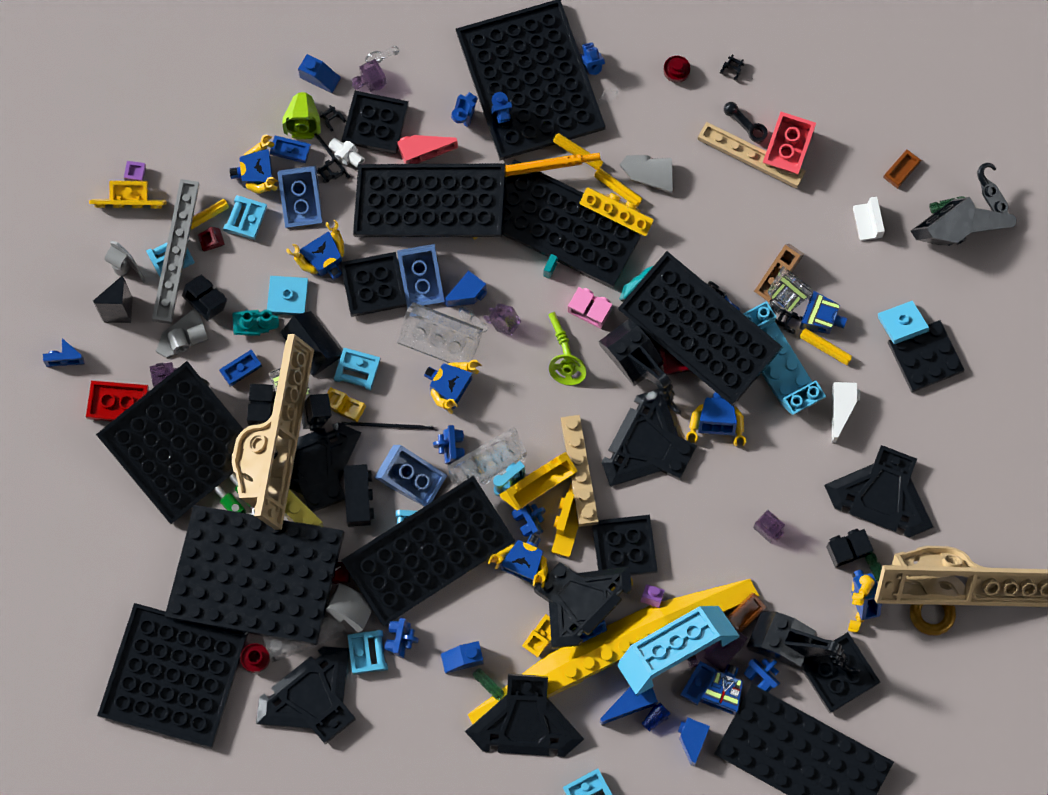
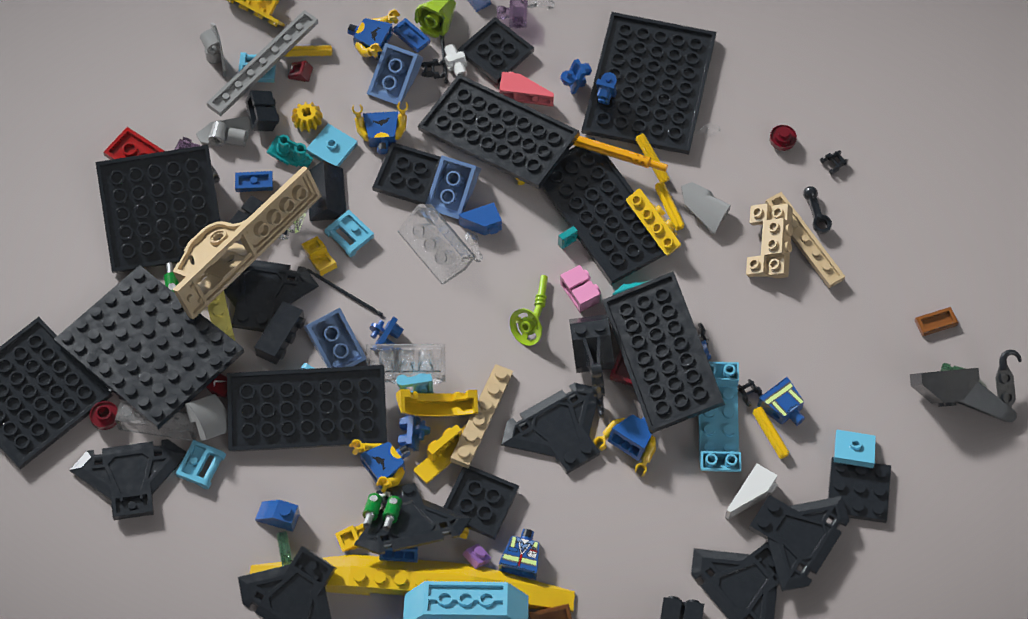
camera: 30 degrees right, 10 degrees down
(68, 356) = (119, 99): blue slope -> none
(115, 303) = (186, 74): black slope -> none
(250, 220) = (340, 73): medium azure plate -> none
(255, 280) = (307, 116): none -> yellow gear
(316, 412) = (289, 245): black piece -> none
(336, 114) = (456, 30): black piece -> none
(403, 639) = (237, 469): blue hips -> none
(450, 382) = (419, 285): torso -> none
(503, 319) = (498, 257): clear purple brick -> none
(545, 607) = (373, 506): none -> green piece
(592, 59) = (712, 92): blue hips -> none
(689, 573) = (521, 556): none -> torso
(729, 170) = (775, 241): none -> tan bracket
(769, 527) = (620, 555): clear purple brick -> none
(788, 291) = (763, 365): clear torso -> none
(789, 143) = (844, 244): coral slope -> none
(789, 258) = (768, 346): medium nougat slope -> none
(869, 220) = (877, 348): white panel -> none
(905, 425) = (799, 536): none -> black plate

